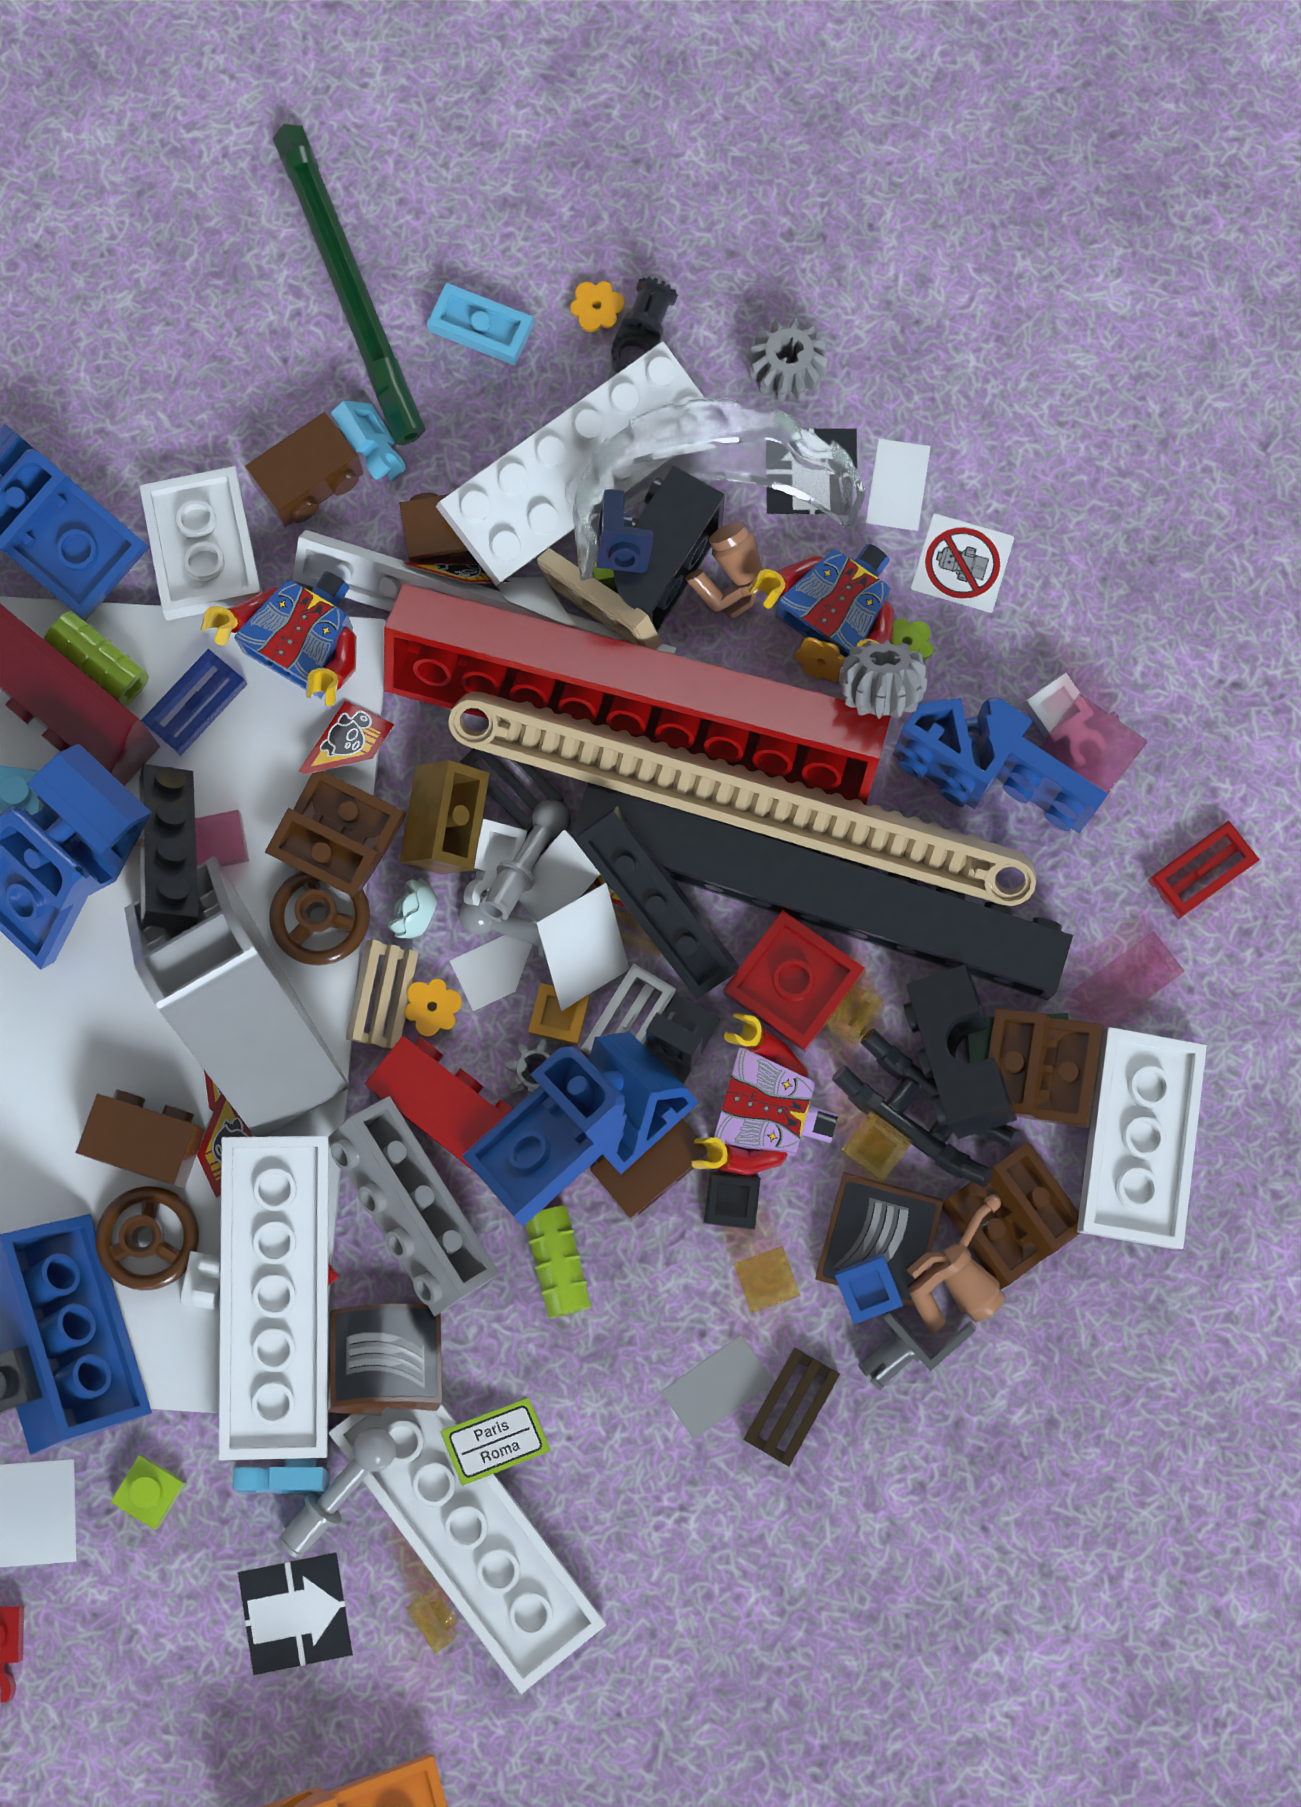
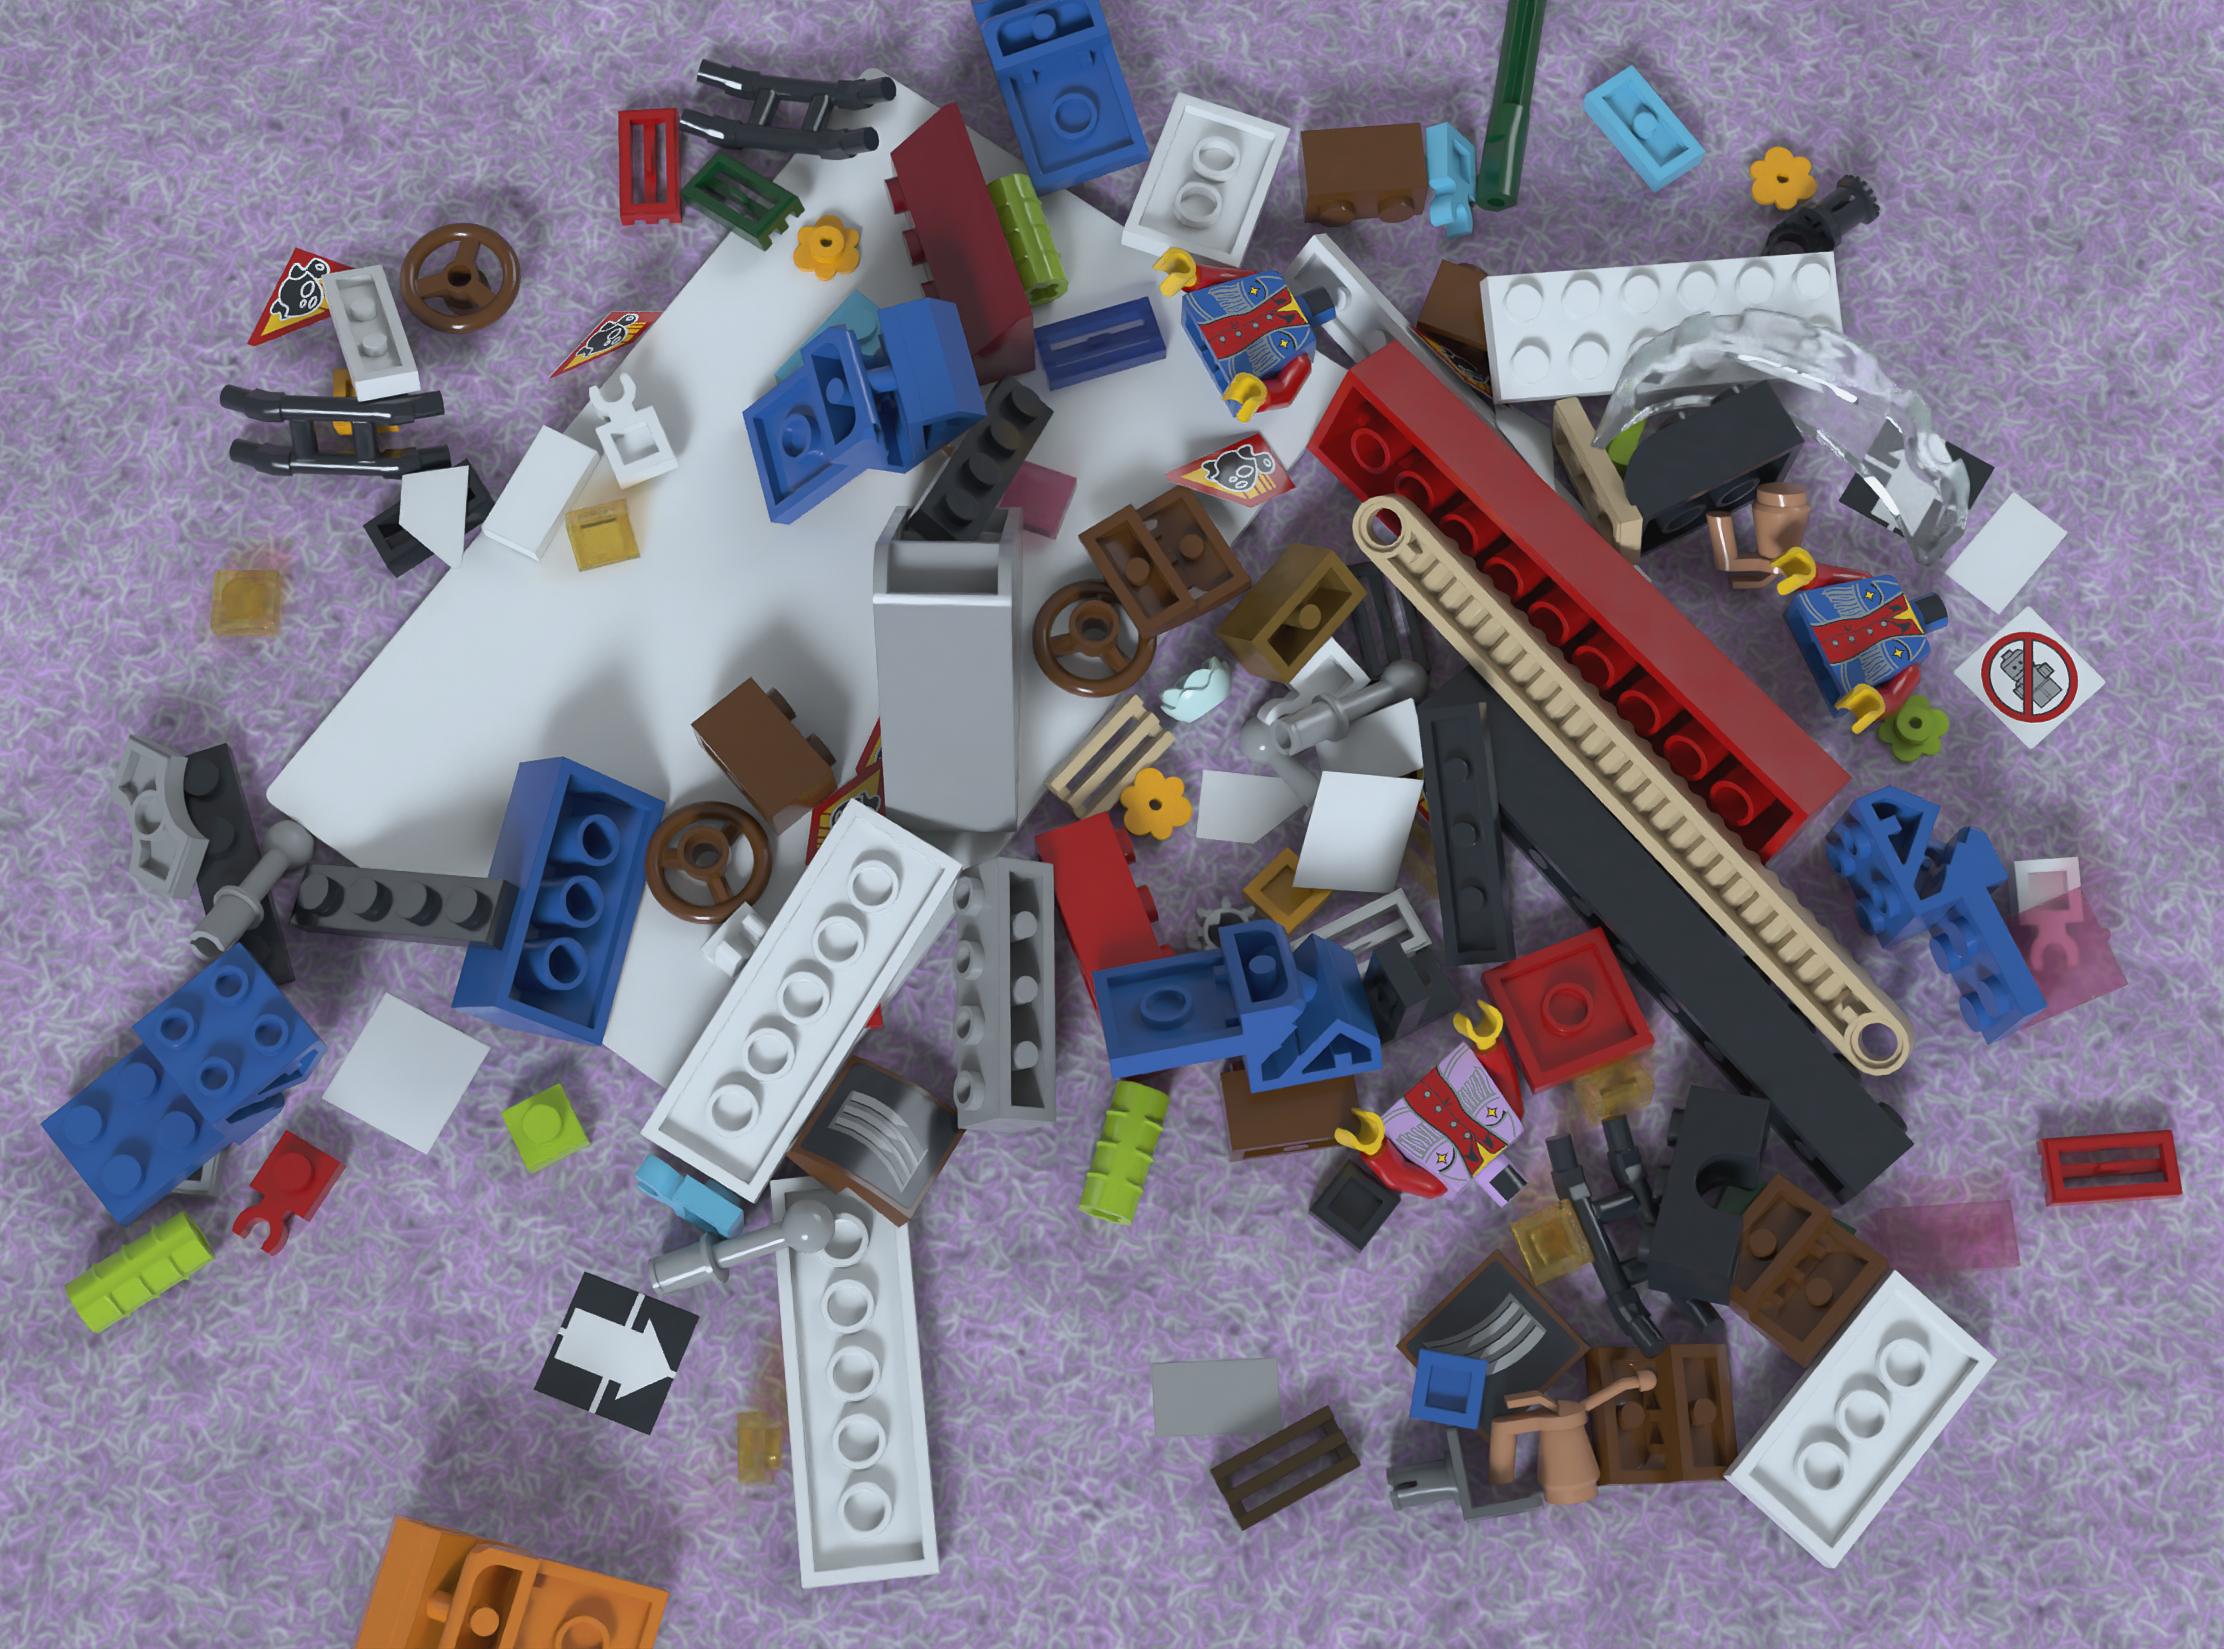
camera: 30 degrees right, 5 degrees down
(495, 1441) = (940, 1301): sticker -> none
(619, 543) = (1658, 424): dark blue bracket -> none
(766, 1279) = (1341, 1313): clear yellow plate -> none
(790, 376) = (1959, 372): light grey gear -> none
(820, 659) = (1806, 687): light orange plant -> none
(883, 679) = (1864, 734): light grey gear -> none

